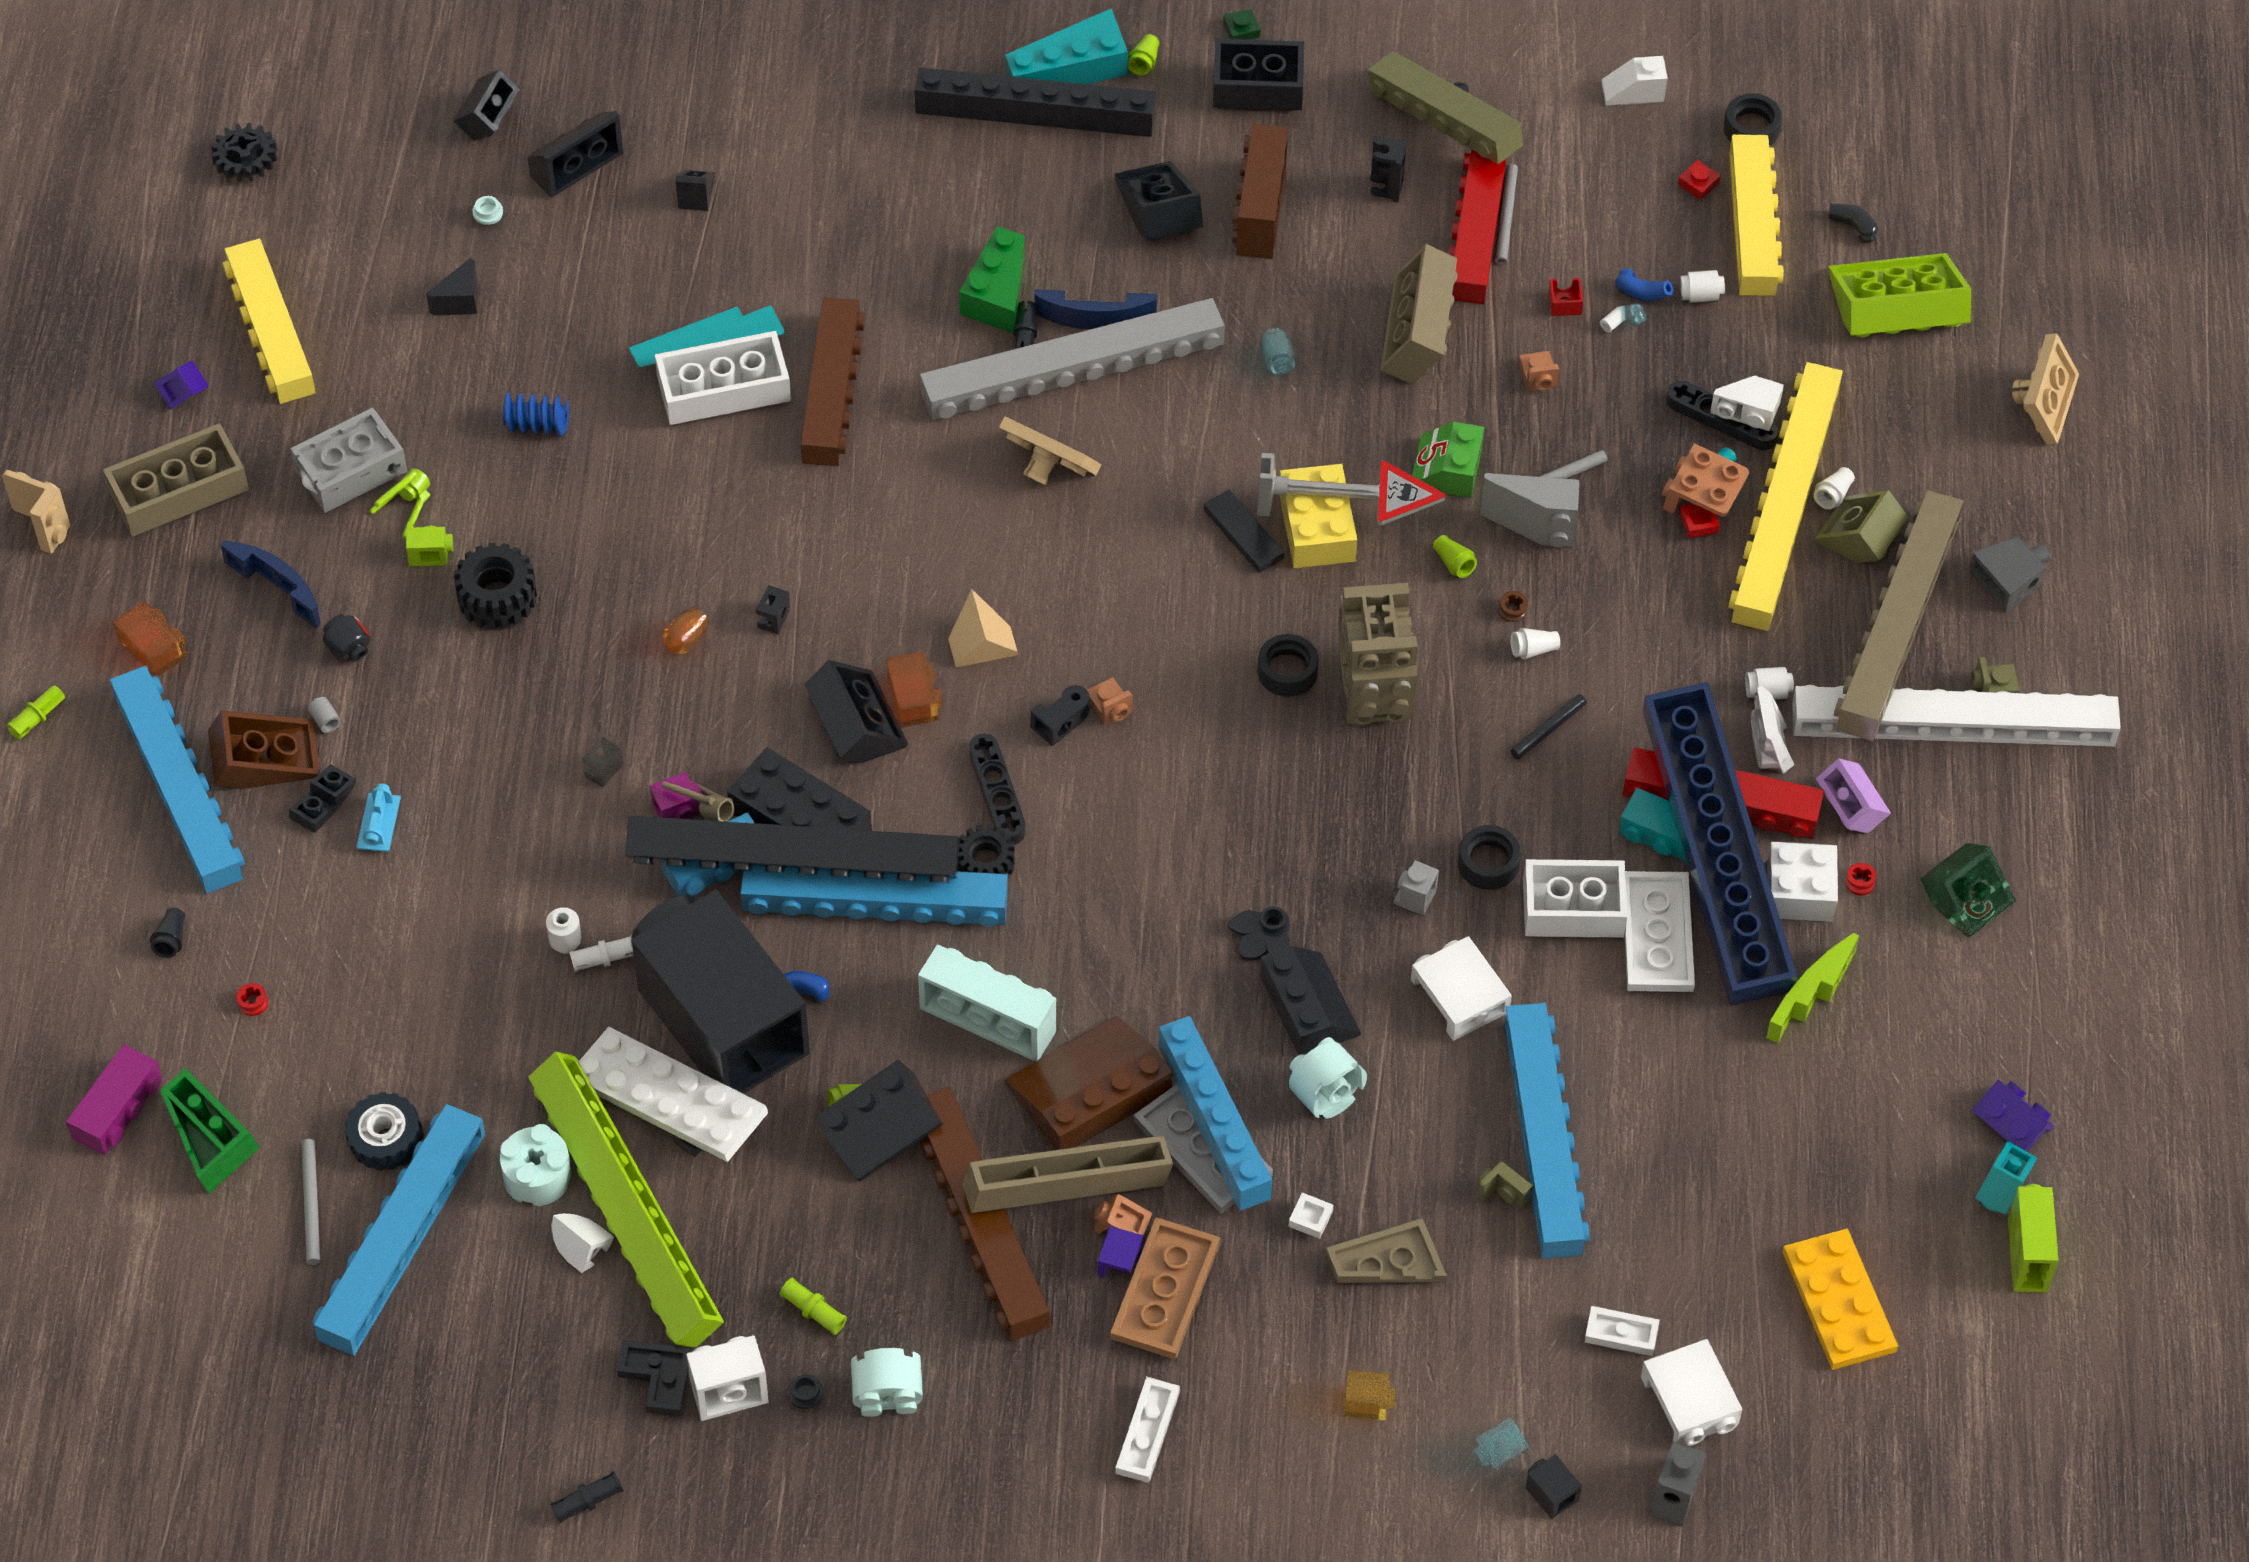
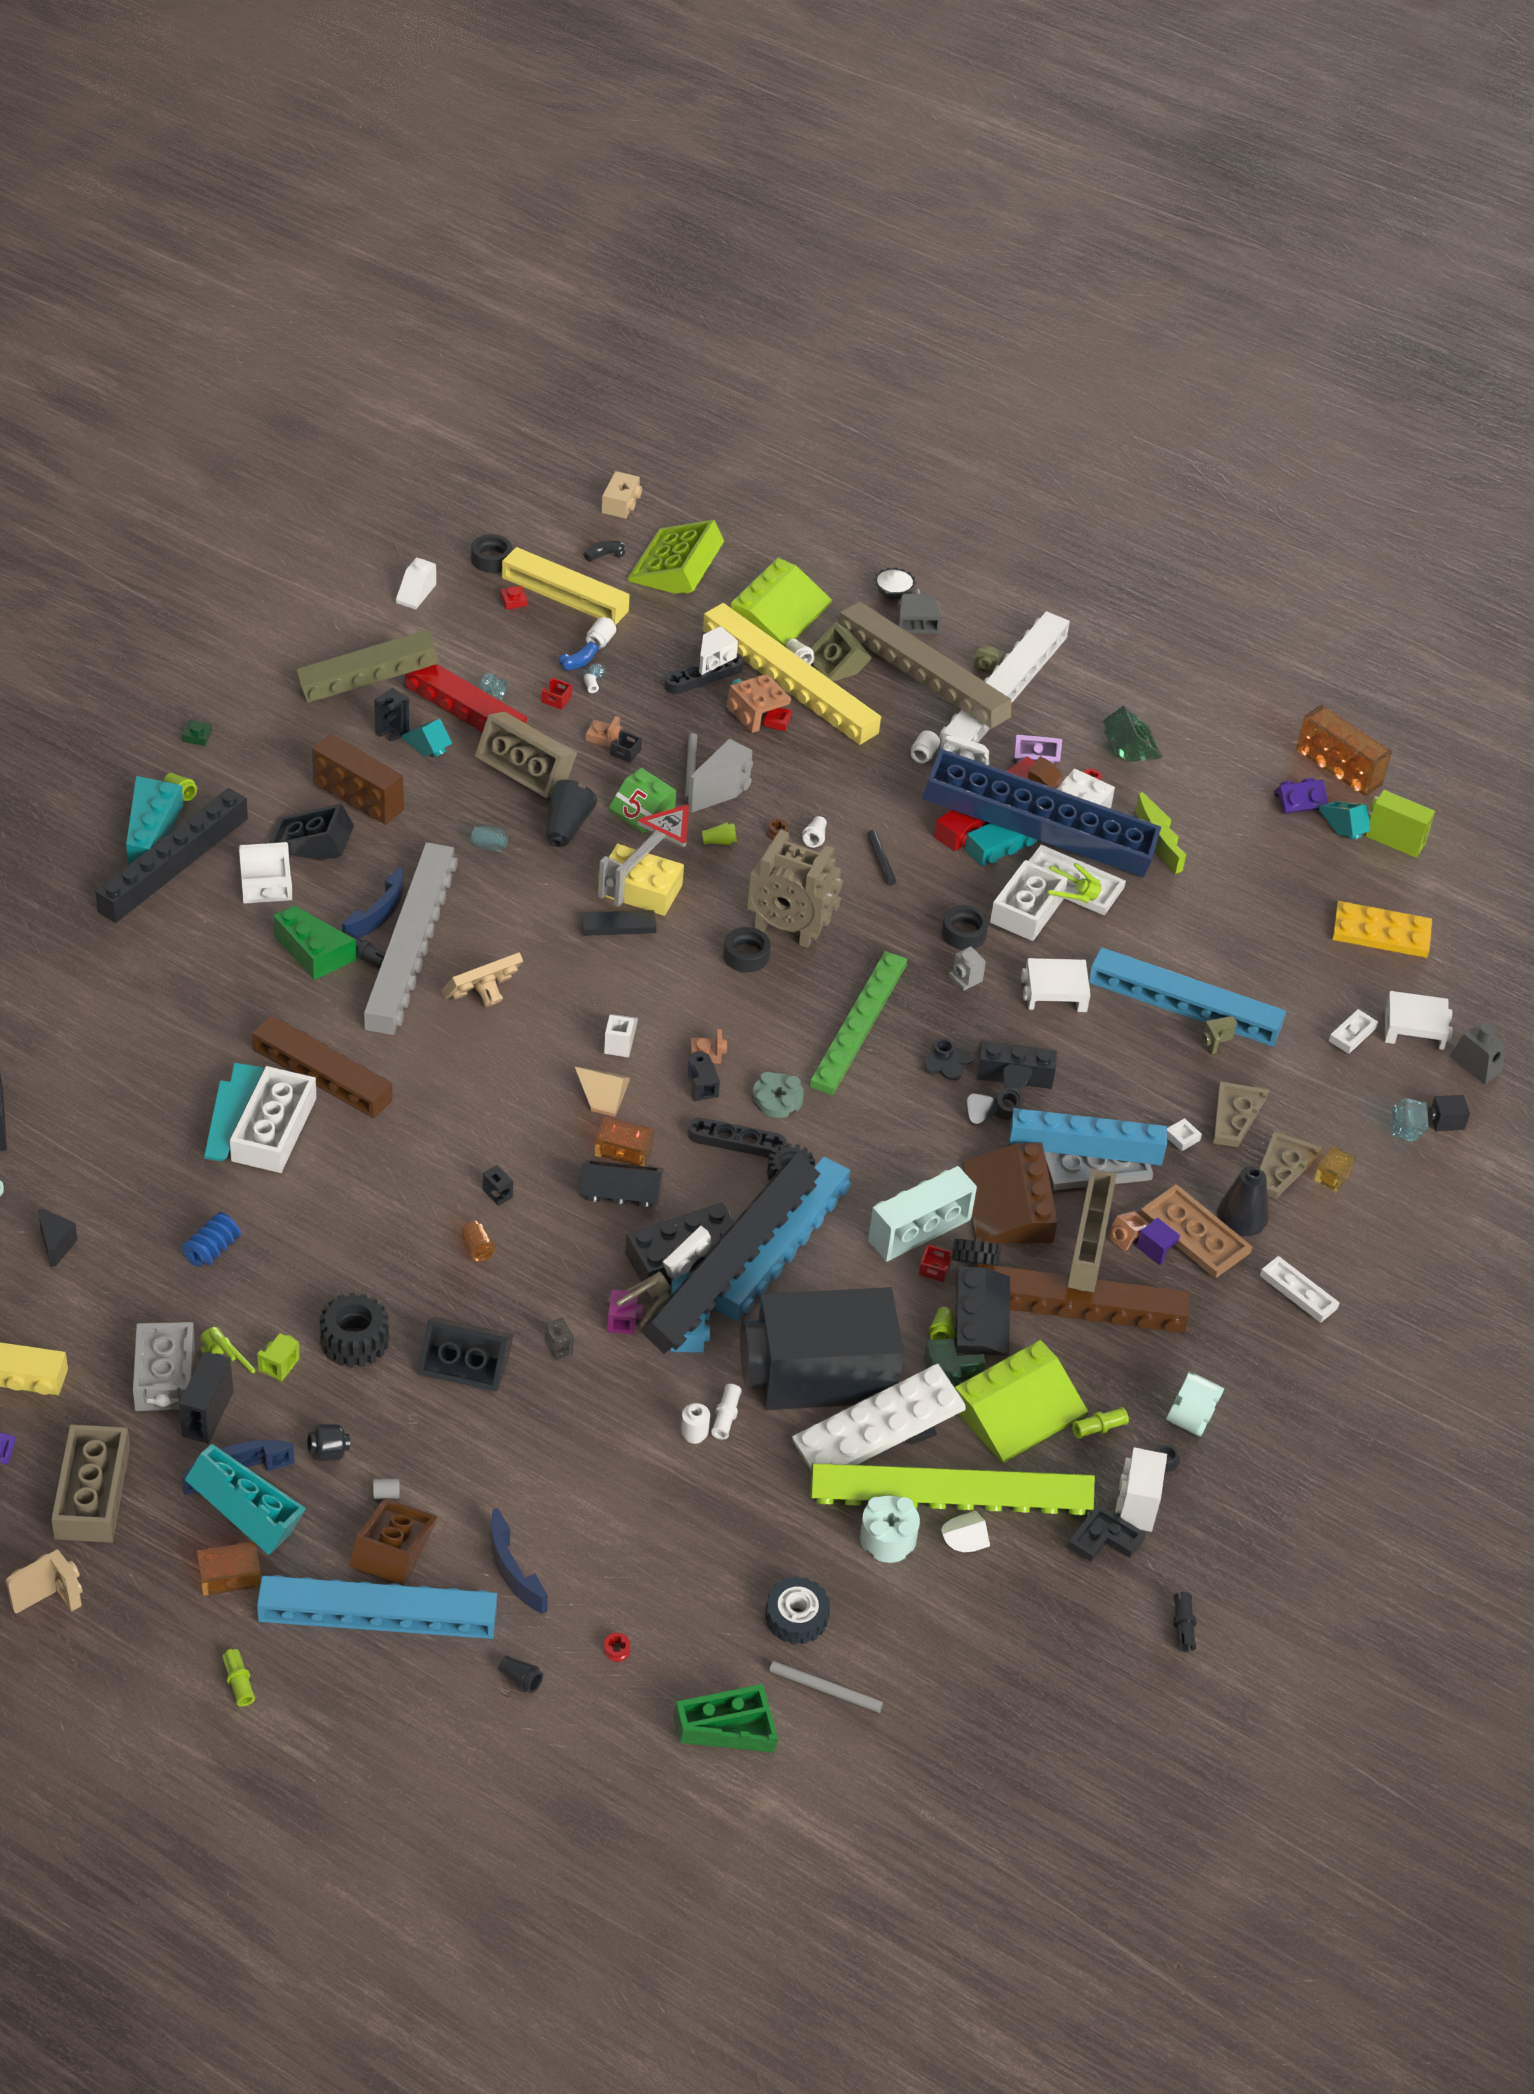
camera: 65 degrees left, 10 degrees down
(114, 1099) = (656, 1774): magenta brick -> none
(218, 605) = (245, 1498): none -> teal wedge
(318, 833) = (525, 1588): none -> dark blue slope
(325, 796) = (462, 1524): black slope -> none
(329, 510) = (206, 1397): none -> black brick
(379, 819) = (509, 1496): medium azure hinge -> none
(398, 1230) = (892, 1638): dark azure brick -> none
(532, 692) = (464, 1353): none -> black slope
(694, 189) = (80, 1062): black slope -> none
(761, 808) = (688, 1253): none -> white plate
(790, 1215) = (1020, 1401): none -> lime slope
(796, 1124) = (955, 1367): none -> clear green brick
(940, 1043) = (930, 1259): none -> red piece
(966, 1079) = (976, 1252): none -> black tyre
(1067, 607) = (620, 1035): none -> white slope
(1073, 193) = (265, 872): none -> white panel
(1095, 781) = (772, 1083): none -> sand green plate
(1202, 997) = (983, 1107): none -> black piece
(1234, 1322) = (1246, 1203): none -> black cone
(1258, 74) = (254, 738): black brick -> none
(1261, 823) = (858, 1023): none -> bright green plate
(1326, 1078) = (1091, 1074): light aqua brick -> none
(1337, 1337) = (1286, 1161): none -> dark tan wing
(1363, 399) = (568, 811): none -> black cone
(1388, 221) = (428, 738): none -> teal slope
(1523, 234) = (493, 686): none -> clear light blue wheel
(1538, 398) = (631, 748): none -> black piece
(1633, 945) = (1087, 888): none -> lime plant
(1786, 818) = (1045, 773): none -> reddish brown brick
(1904, 428) = (781, 601): none -> lime slope
(1965, 186) = (621, 494): none -> tan brick
(2043, 521) = (894, 582): none -> white piece
(2049, 389) = (803, 533): tan plate -> none
(2122, 1123) = (1343, 750): none -> clear orange brick

